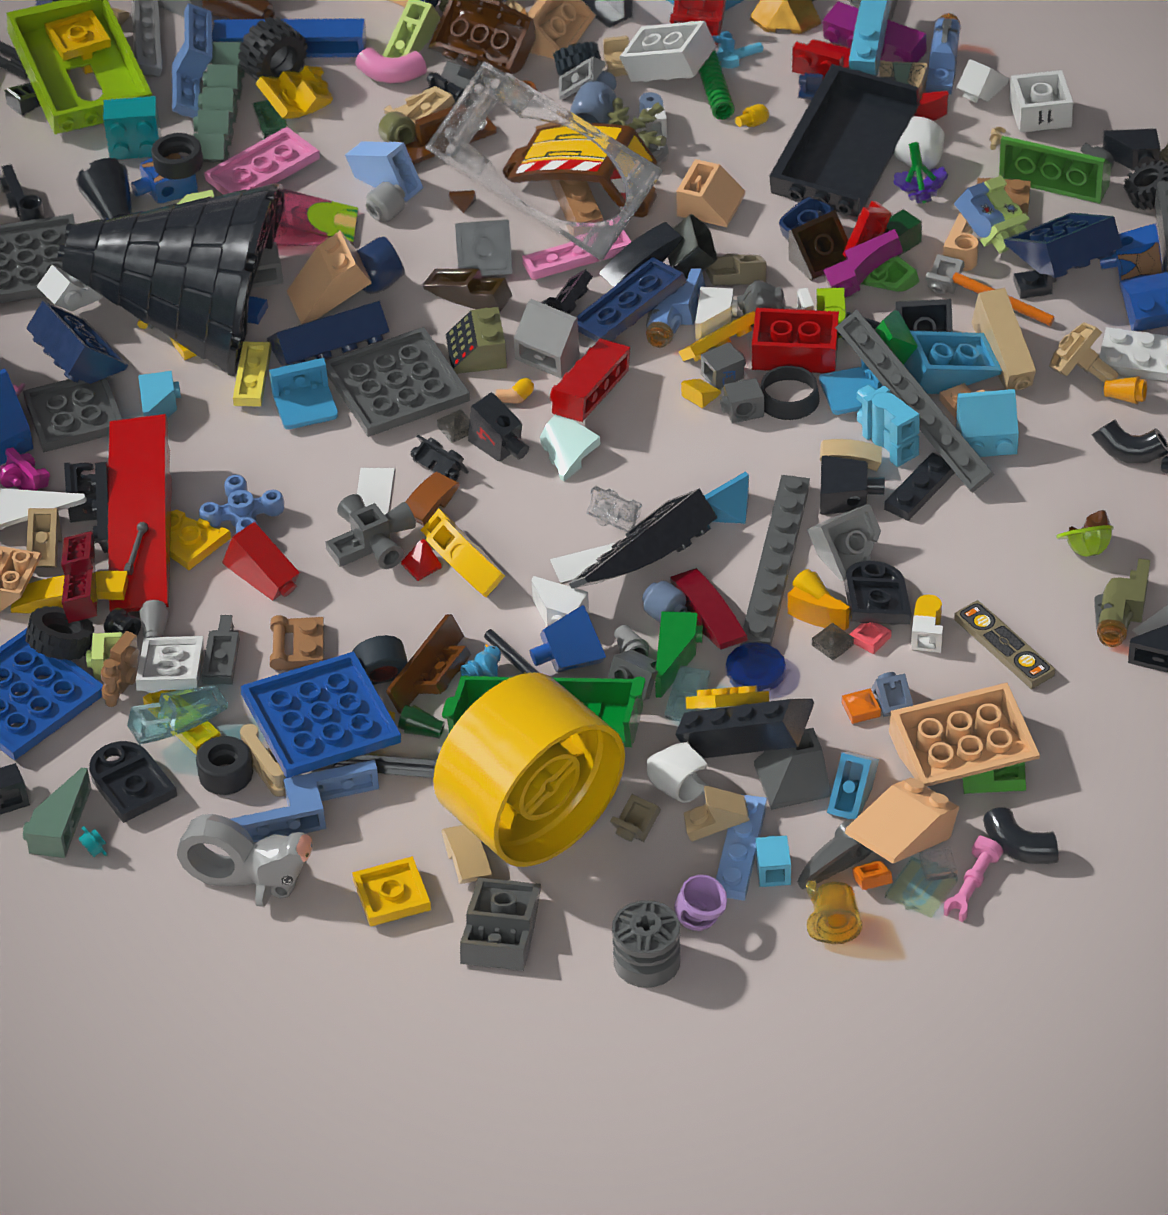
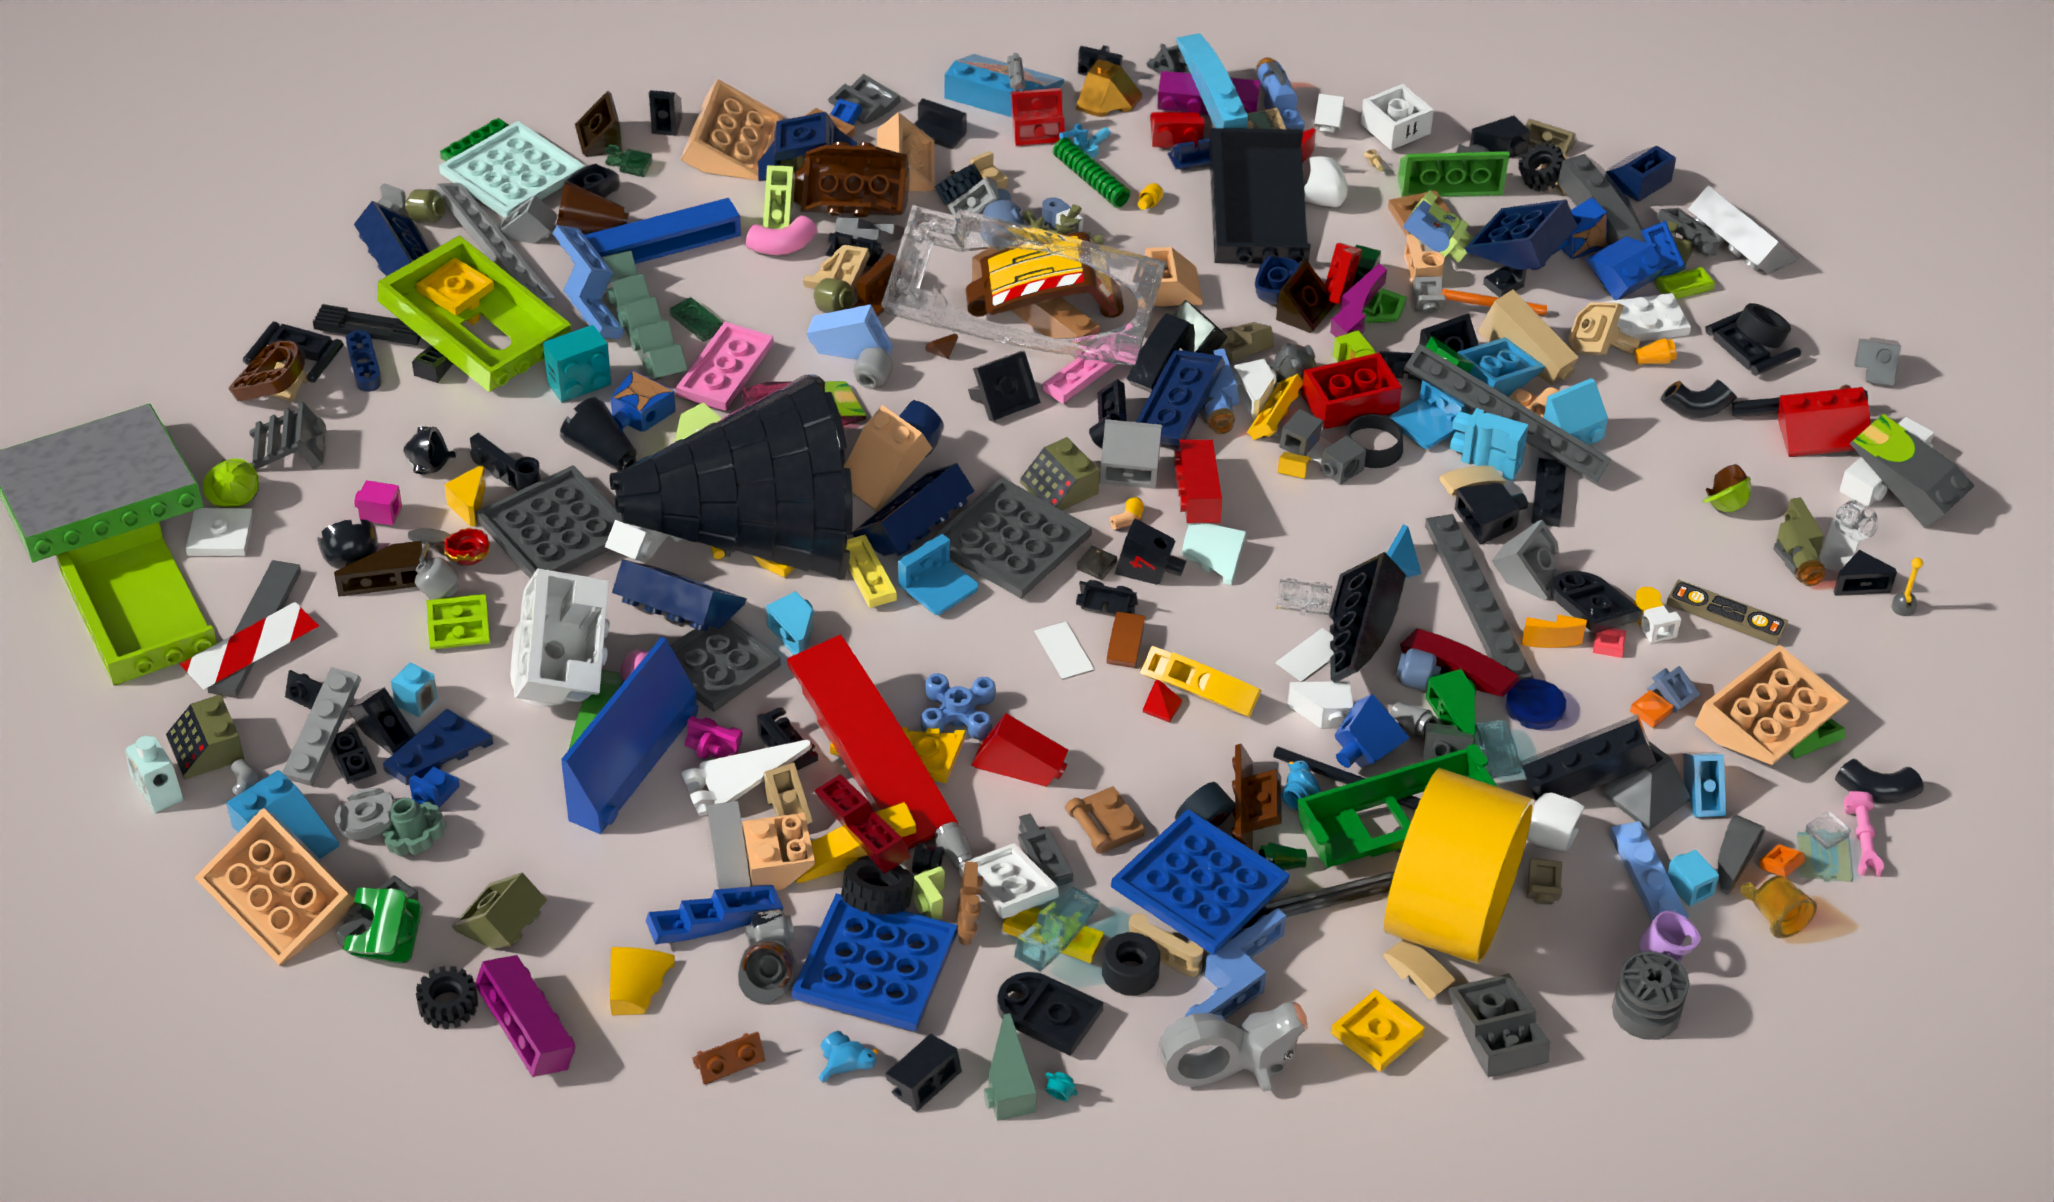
camera: 30 degrees left, 0 degrees up
(100, 506) = (828, 743): black plate -> none
(142, 527) = (892, 754): dark grey hinge -> none
(177, 168) = (649, 364): black tyre -> none
(271, 49) = (667, 252): black tyre -> none
(296, 93) = (707, 286): yellow slope -> none
(370, 532) = (1100, 689): dark grey brick -> none
(468, 288) = (1013, 428): dark brown slope -> none
(667, 51) = (1041, 155): white brick -> none
(720, 812) = (1616, 850): tan slope -> none
(726, 697) = (1549, 740): yellow plate -> none
(804, 300) = (1330, 353): white tile -> none
(810, 583) = (1532, 609): yellow cone -> none
(832, 641) = (1583, 657): clear smoke tile -> none
(904, 821) = (1783, 799): light nougat slope -> none
(924, 188) = (1351, 212): dark purple plant -> none

